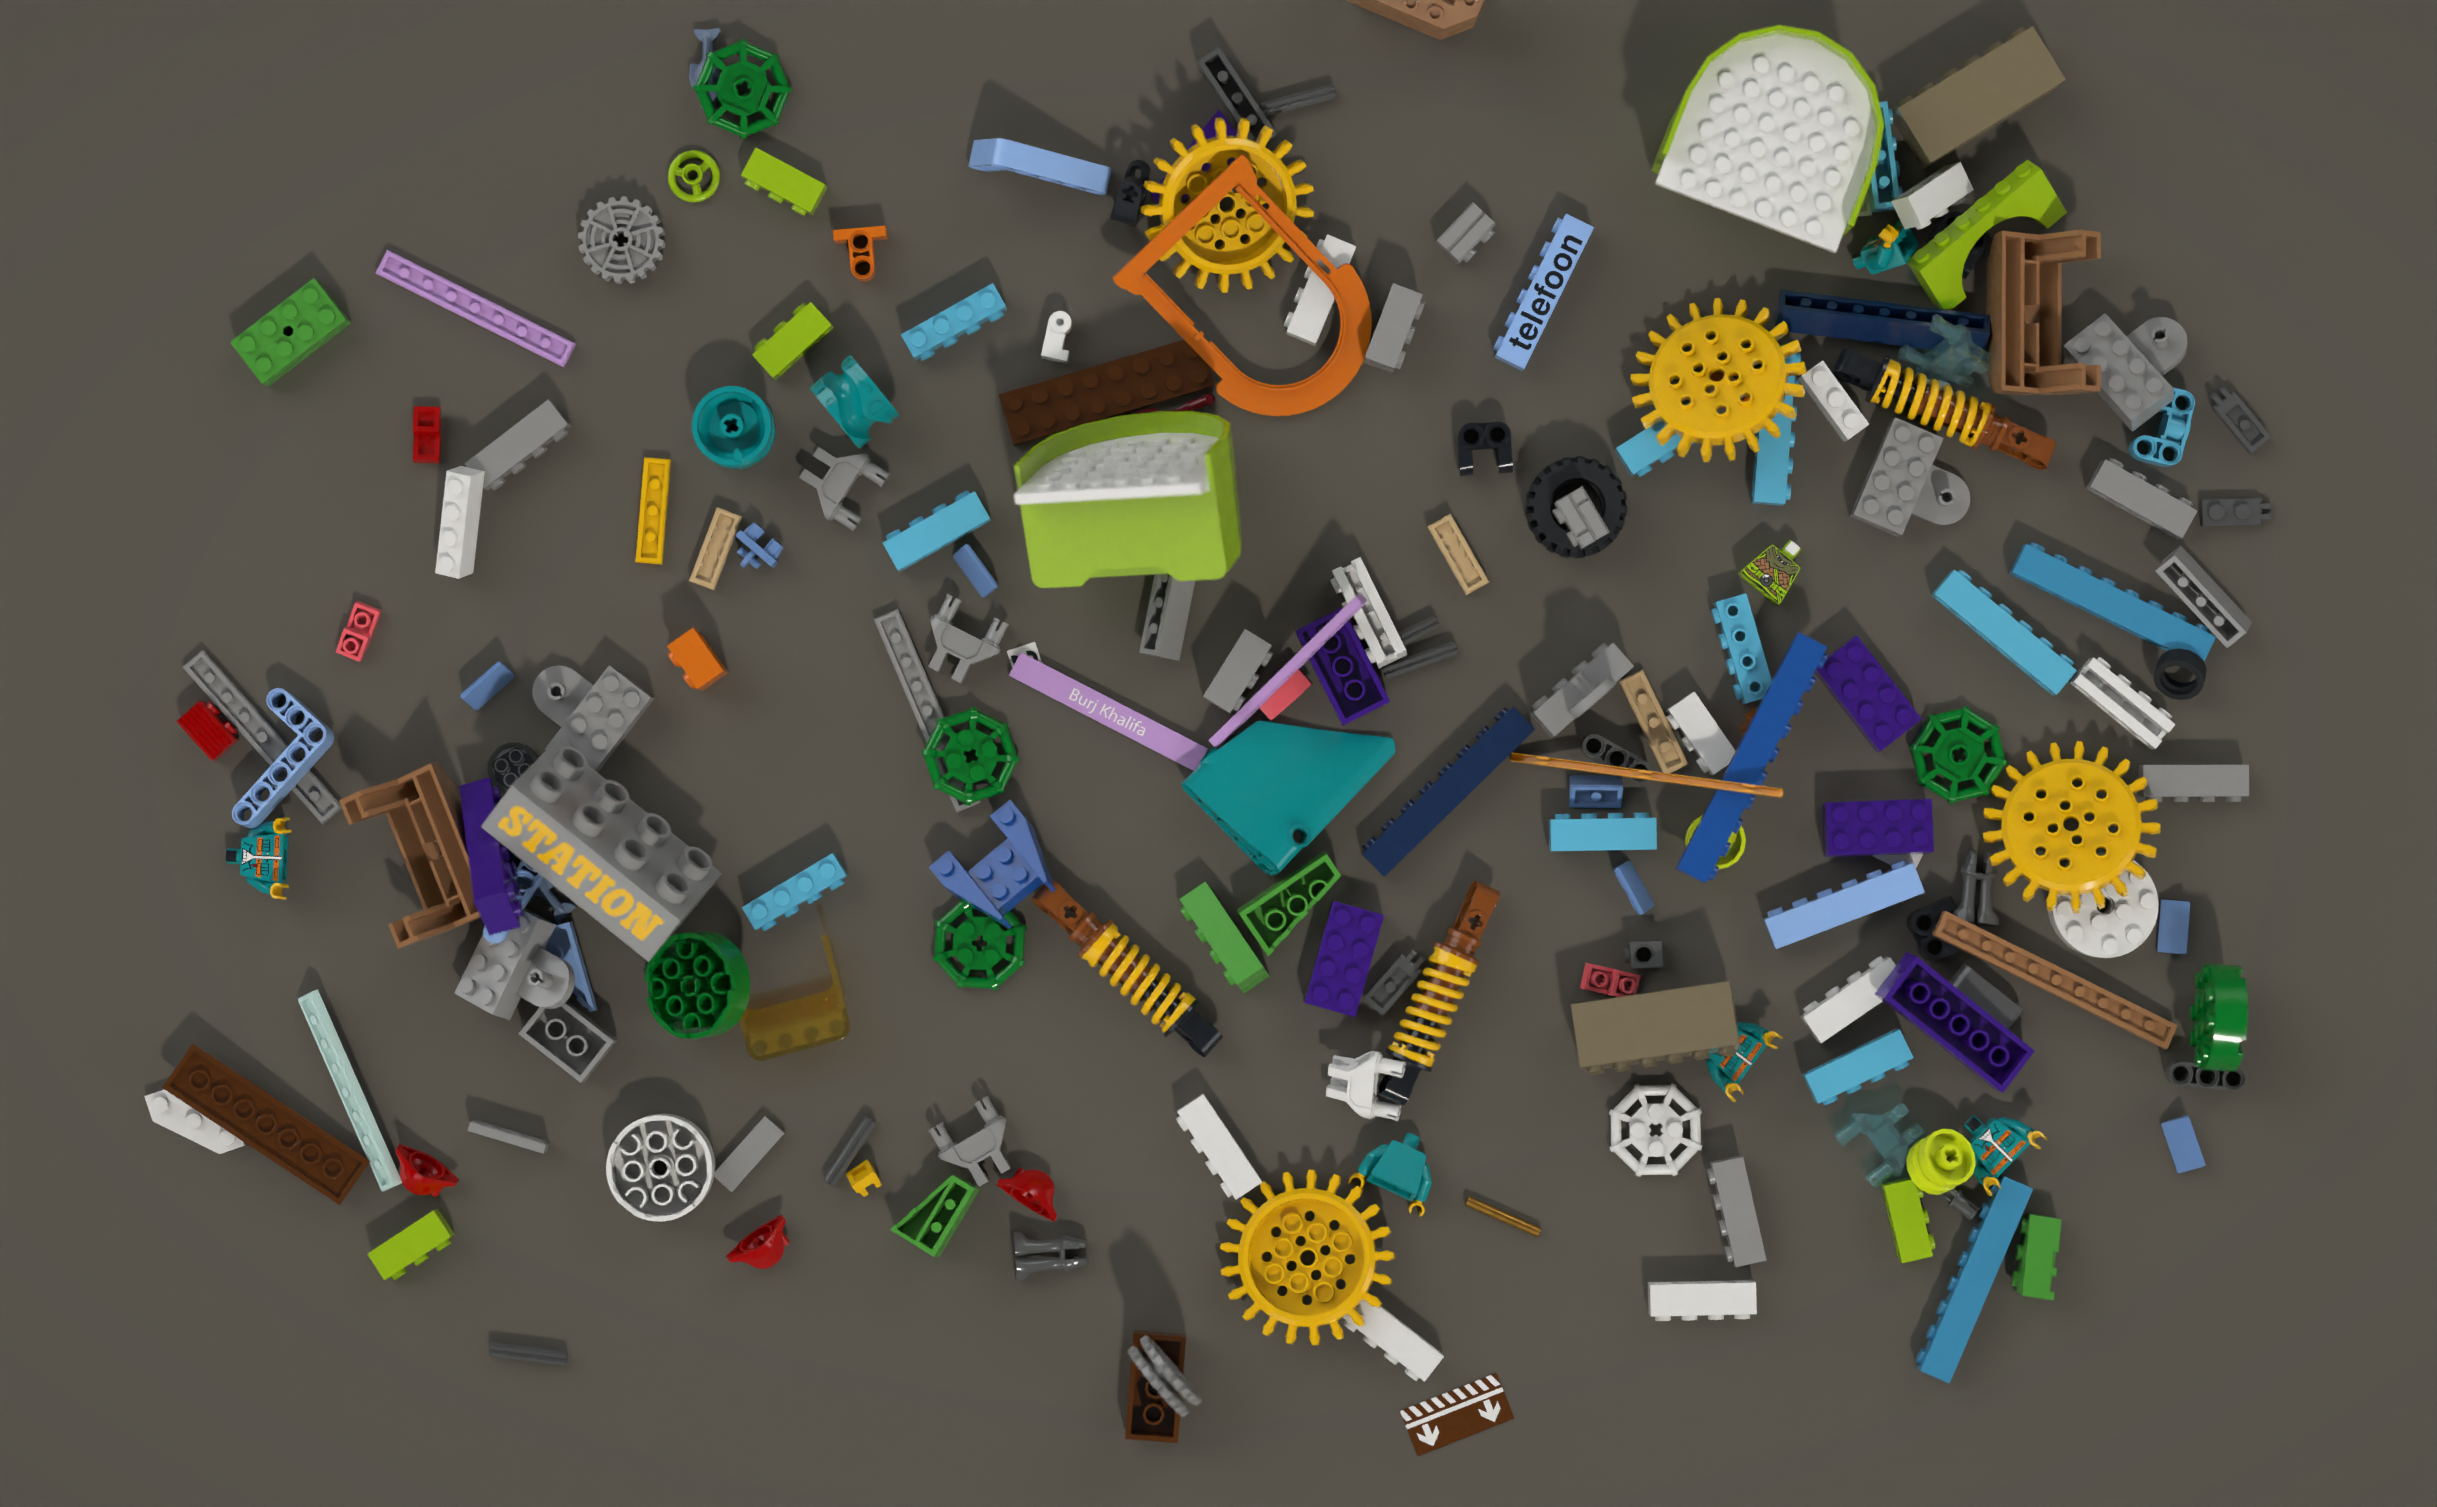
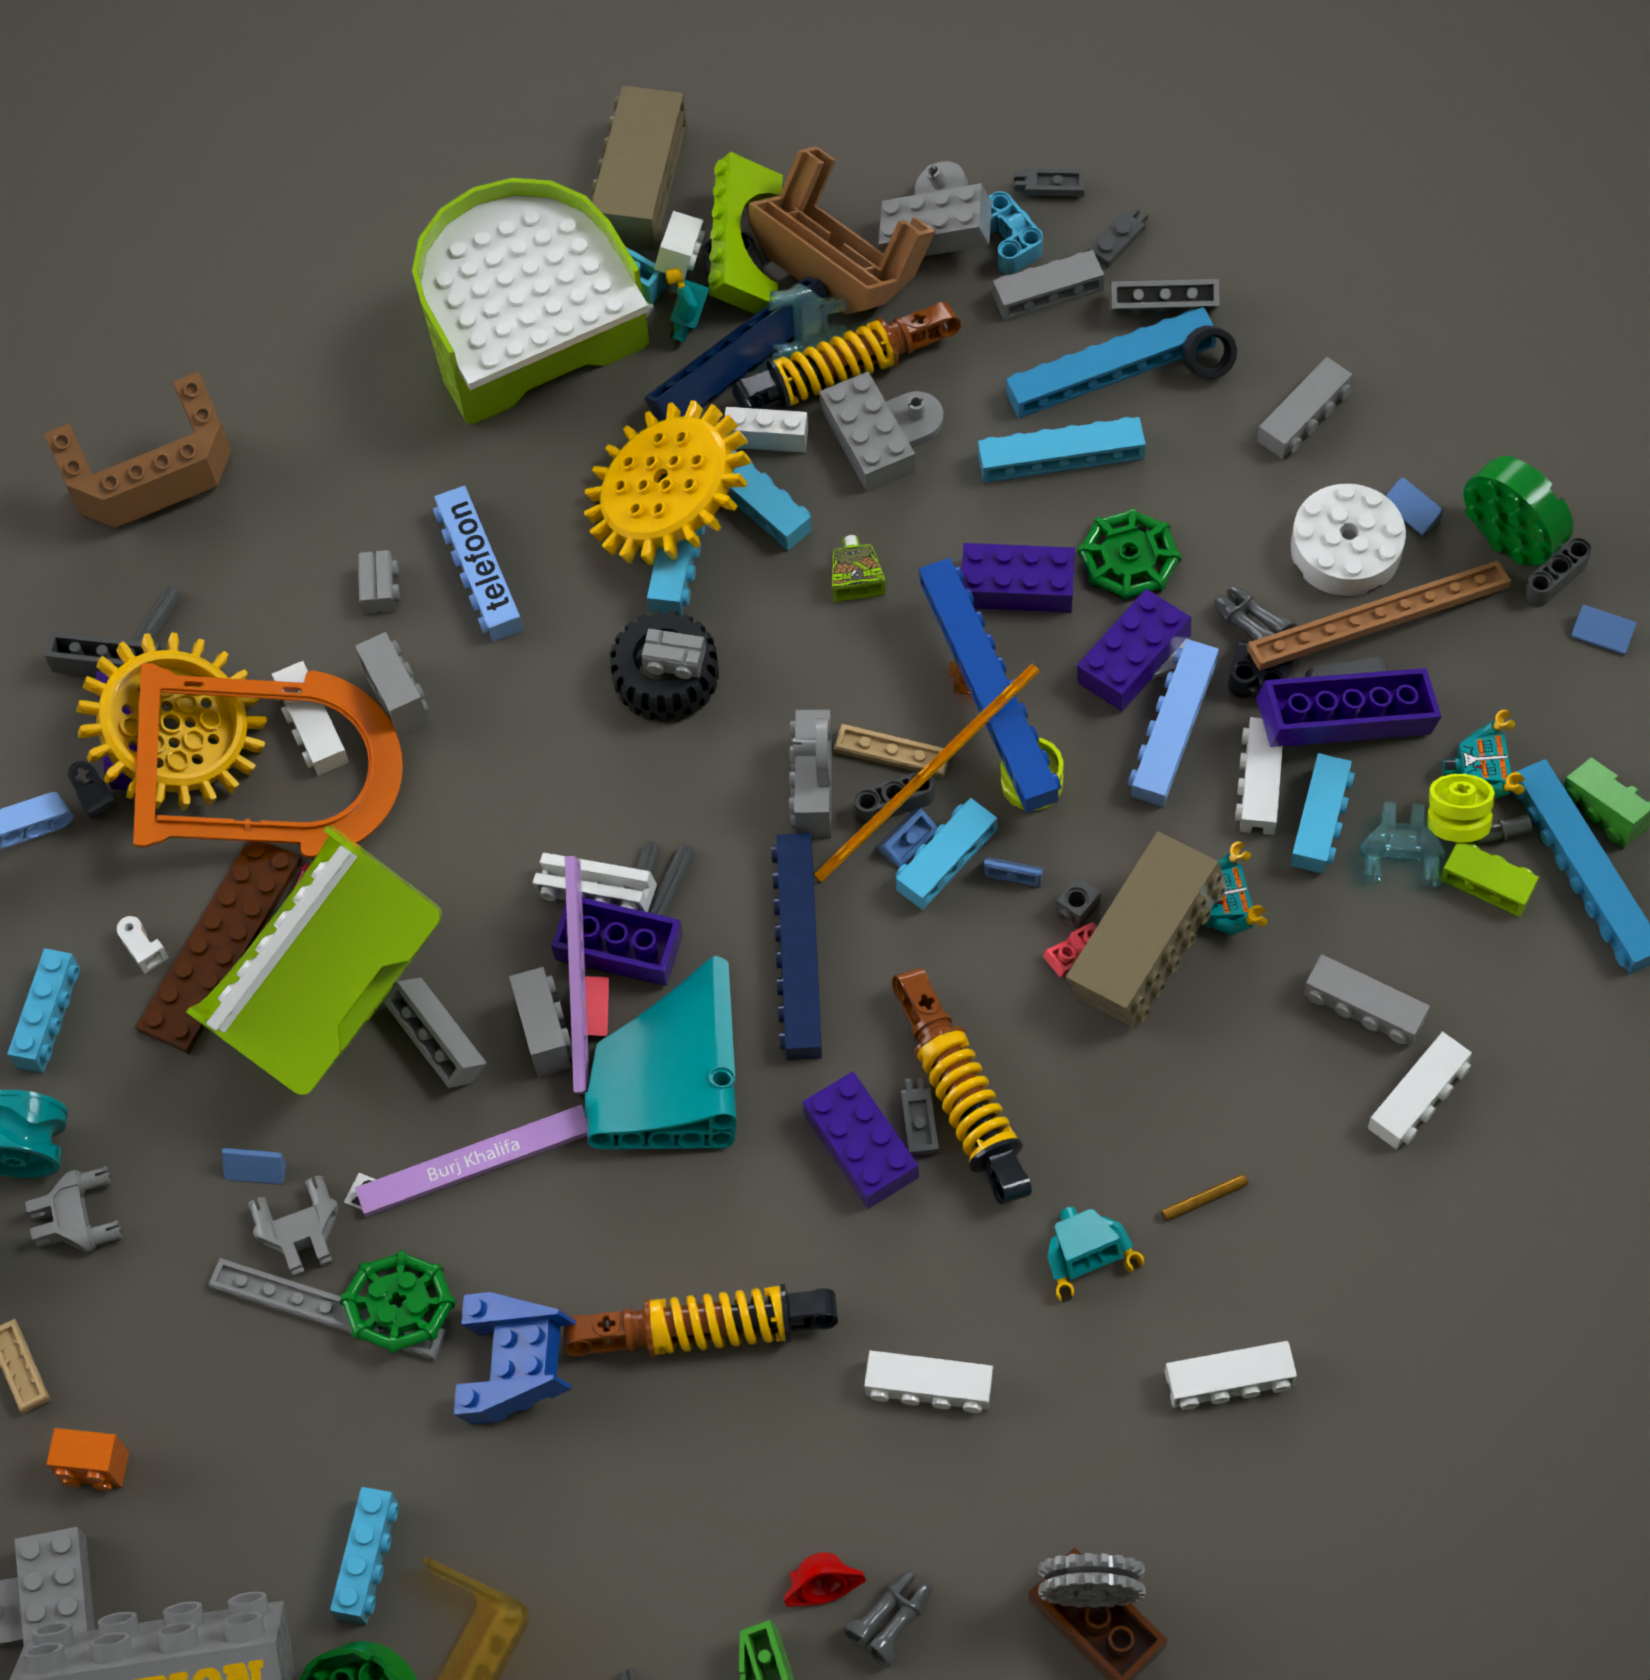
camera: 40 degrees left, 25 degrees down
(768, 554) = (55, 1333): medium blue hips -> none
(936, 531) = (189, 1167): medium azure brick -> none
(968, 953) = (562, 1454): green plate -> none
(977, 1146) = (737, 1594): light grey connector -> none
(1224, 938) = (752, 1221): bright green wedge -> none
(1265, 1278) = (1112, 1331): yellow gear -> none
(1287, 902) = (769, 1151): bright green wedge -> none
(1357, 1083) = (979, 1205): white connector -> none
(1457, 1414) = (1352, 1383): reddish brown sticker -> none
(1458, 554) = (616, 785): tan plate -> none
(1484, 442) = (539, 689): black piece -> none
(1656, 1145) = (1242, 998): white plate -> none
(1701, 733) = (931, 717): white brick -> none
(1743, 648) = (895, 637): medium azure brick -> none
(2086, 869) = (1240, 546): yellow gear -> none
(2123, 703) = (1196, 410): white brick -> none

